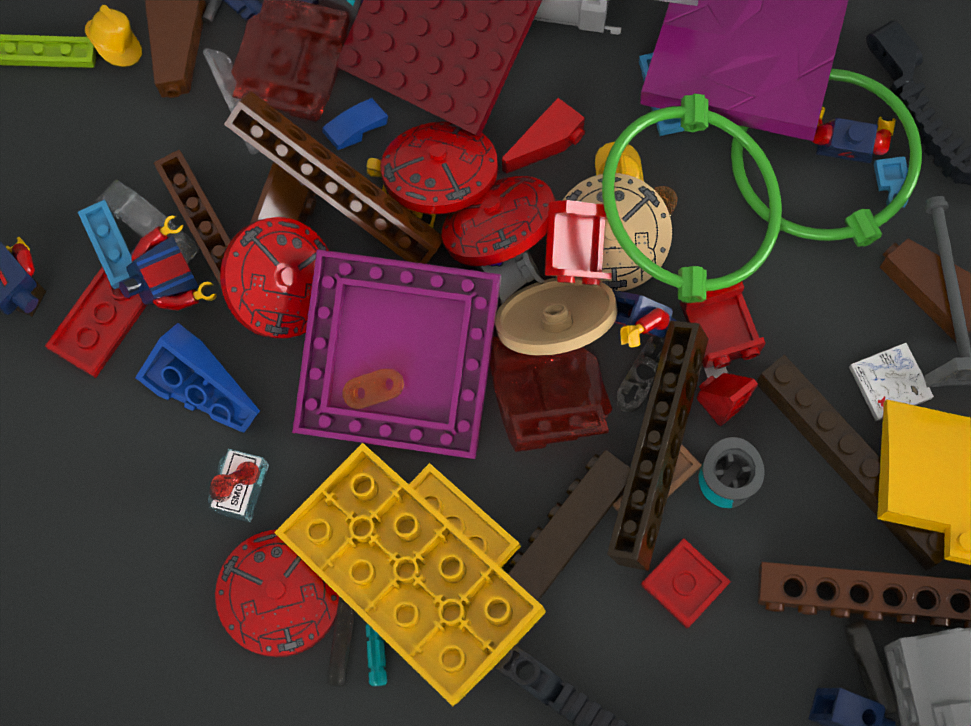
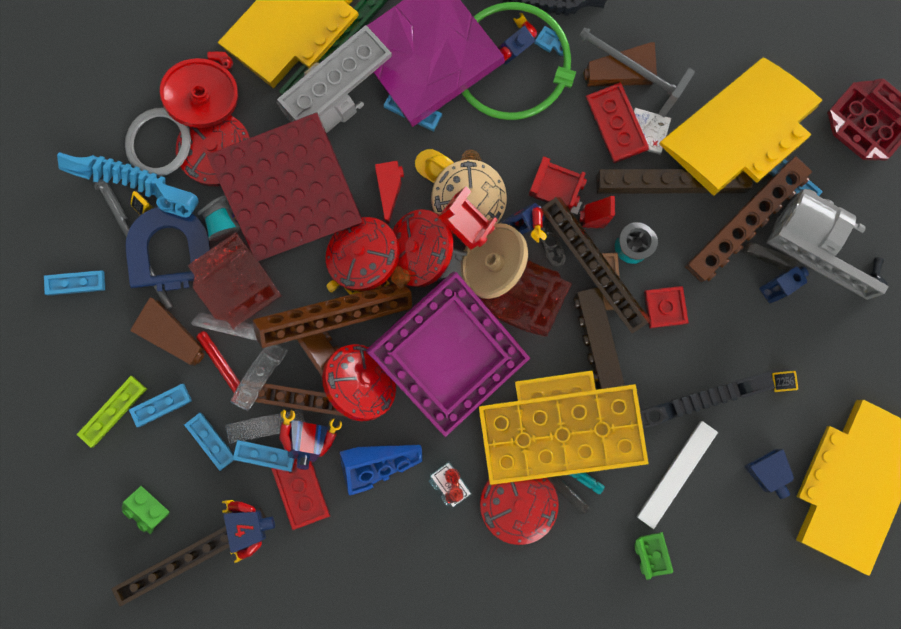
camera: 60 degrees left, 10 degrees up
(83, 175) = (210, 441): none -> dark azure plate
(85, 94) = (160, 405): none -> dark azure plate
(113, 37) = (139, 366): yellow piece -> none
(187, 112) = (218, 360): none -> red axle
(199, 158) = (257, 376): none -> clear slope
(351, 124) = (299, 277): blue slope -> none
(374, 388) = (458, 379): clear orange plate -> none
(444, 225) = (400, 277): none -> clear orange plate
(691, 280) = (447, 108): bright green piece -> none
(865, 335) = (617, 122): none -> red tile

